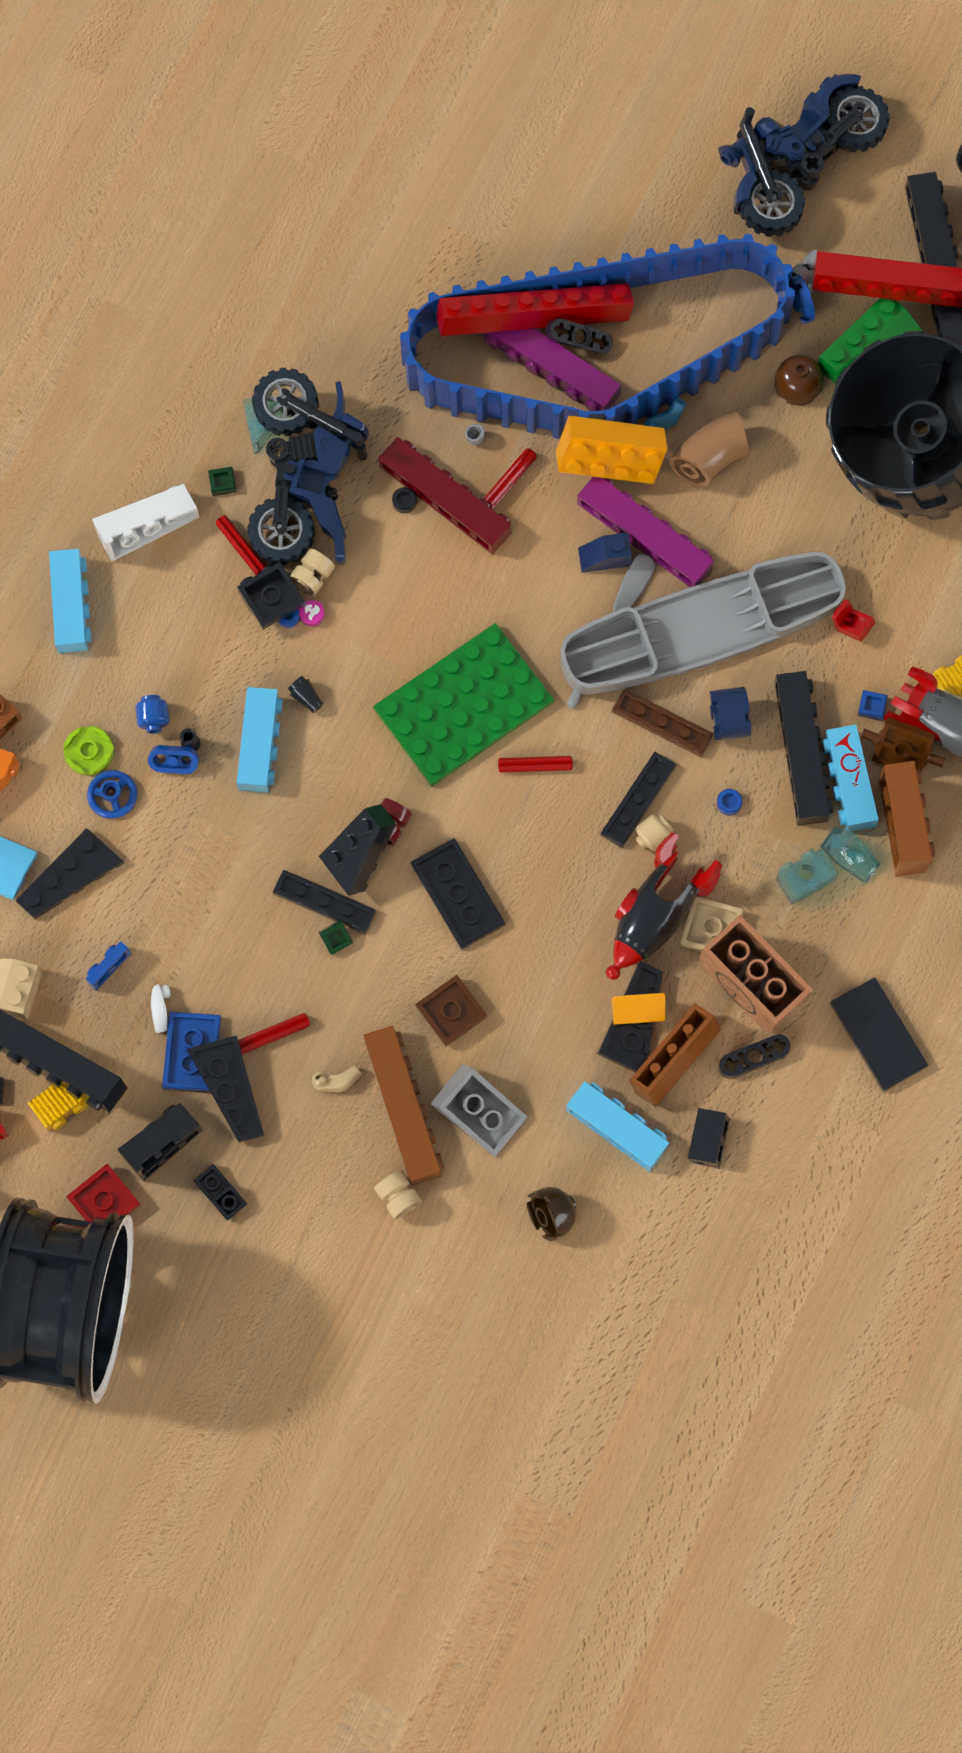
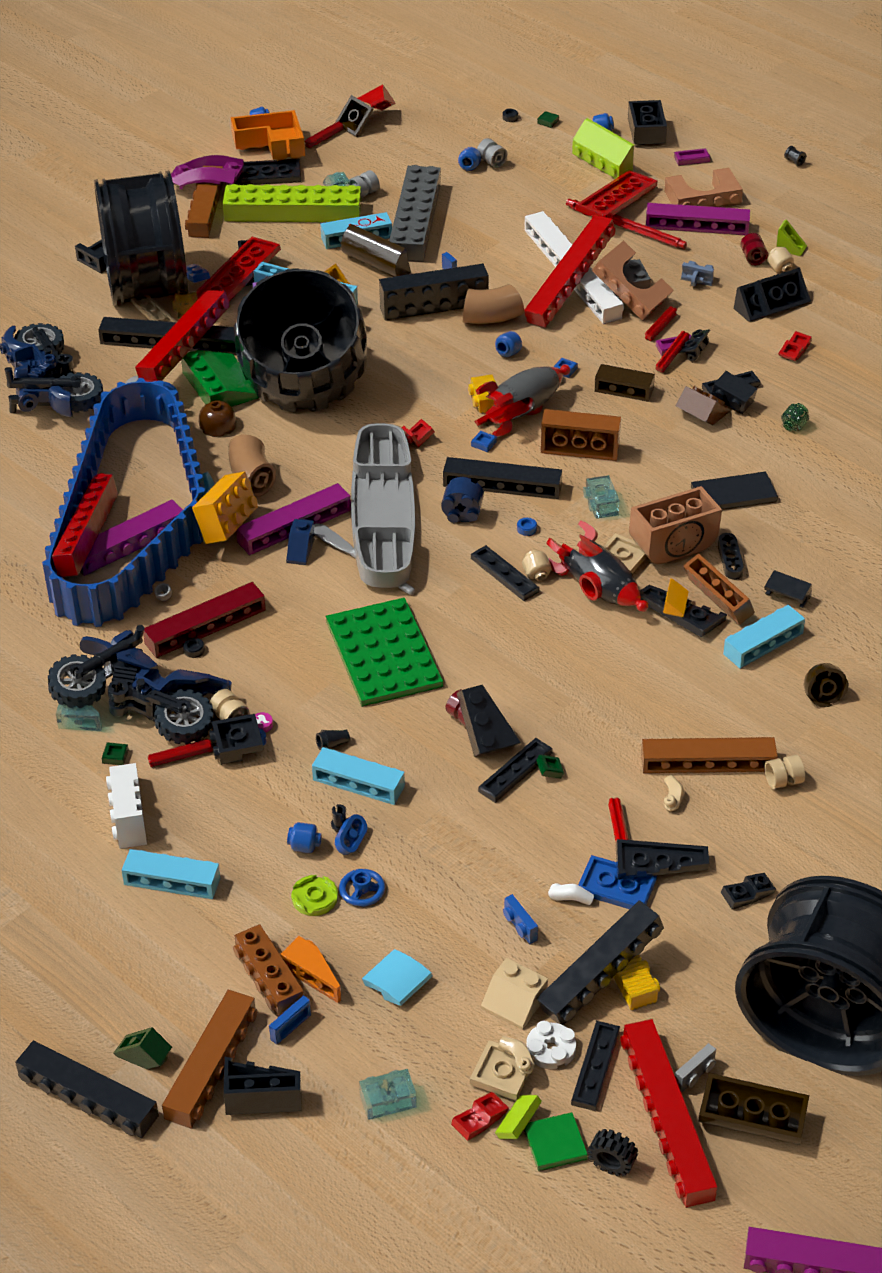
camera: 75 degrees left, 30 degrees down
(75, 868) = (422, 931): black wing -> none
(102, 1195) = (725, 966): red plate -> none
(160, 1141) = (695, 916): black wedge -> none
(451, 1010) = (638, 710): reddish brown plate -> none
(457, 894) = (540, 688): black tile -> none
(478, 1109) = (724, 711): light grey slope -> none
(510, 477) = (206, 580): red axle -> none
(535, 764) = (451, 620): red axle -> none
(589, 333) = (118, 513): black beam -> none
(662, 723) = (448, 547): reddish brown tile -> none
(850, 778) = (538, 455): medium azure brick -> none
(850, 854) = (590, 468): clear light blue slope -> none
(903, 743) = (525, 424): reddish brown plate -> none

